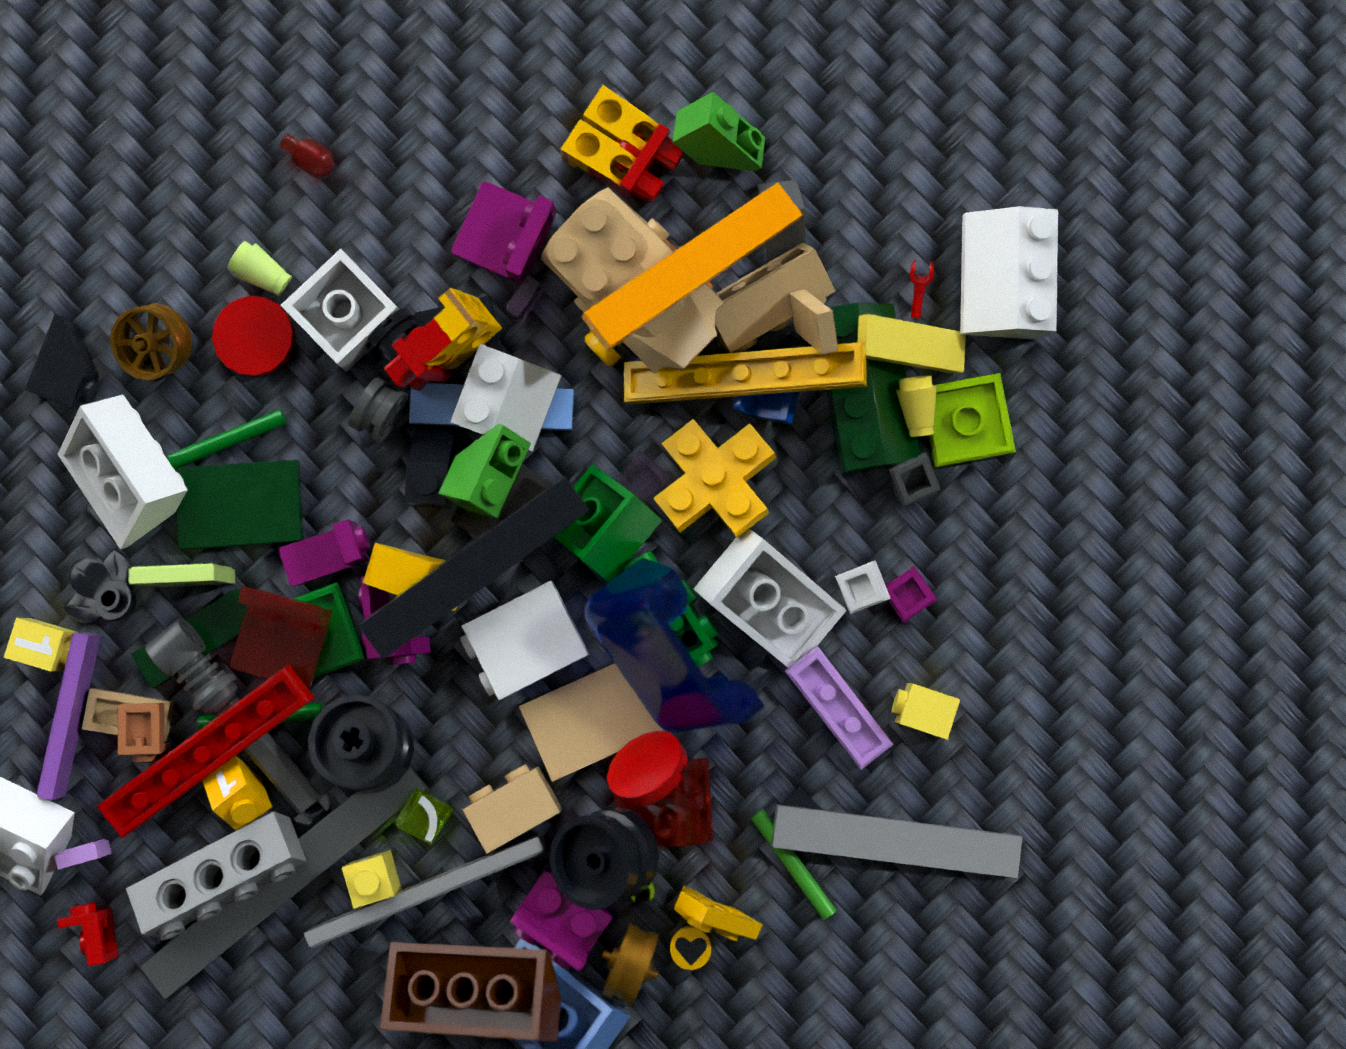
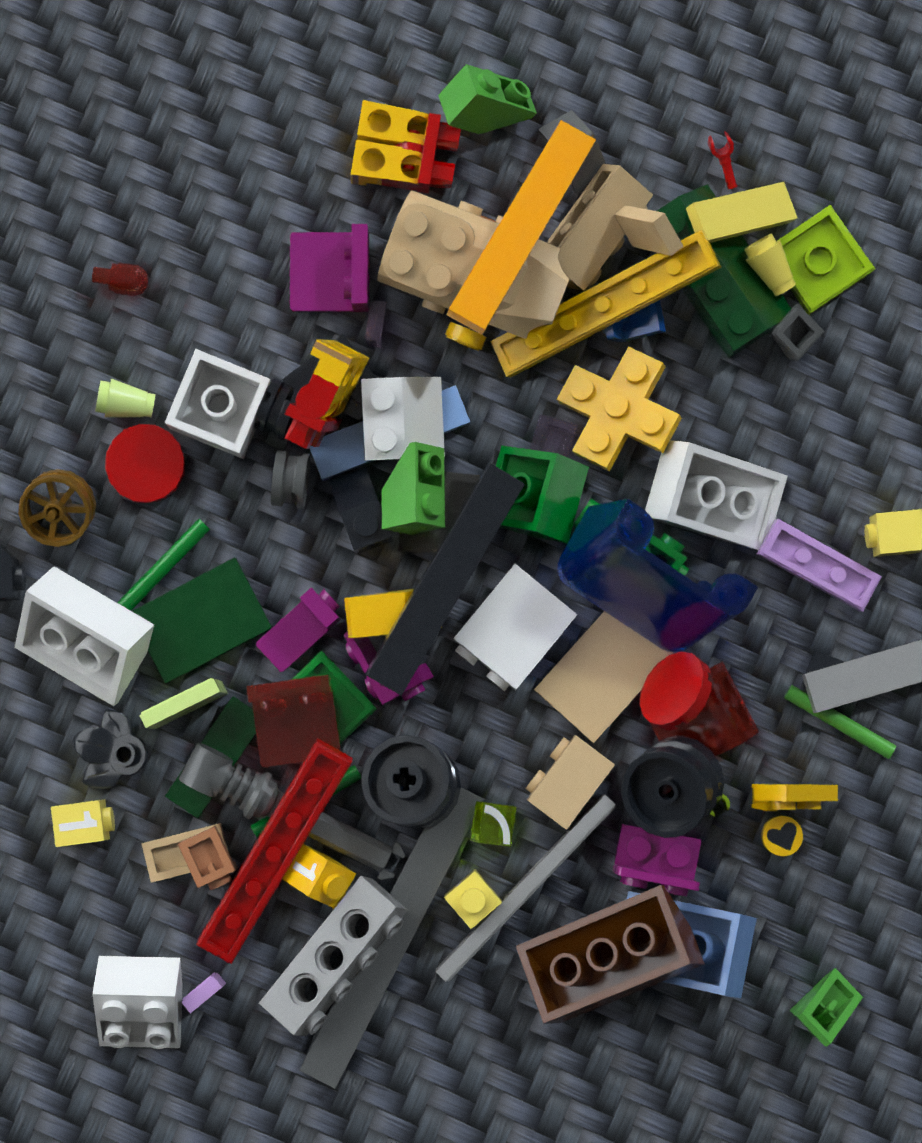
camera: 25 degrees left, 0 degrees up
(68, 716) = (134, 875): medium lavender tile -> none
(98, 932) = (249, 1061): red bracket -> none
(630, 965) = (737, 871): pearl gold wheel -> none
(862, 587) = (793, 448): white tile -> none
(909, 594) = (835, 438): magenta tile -> none
(1009, 272) = (800, 111): white slope -> none

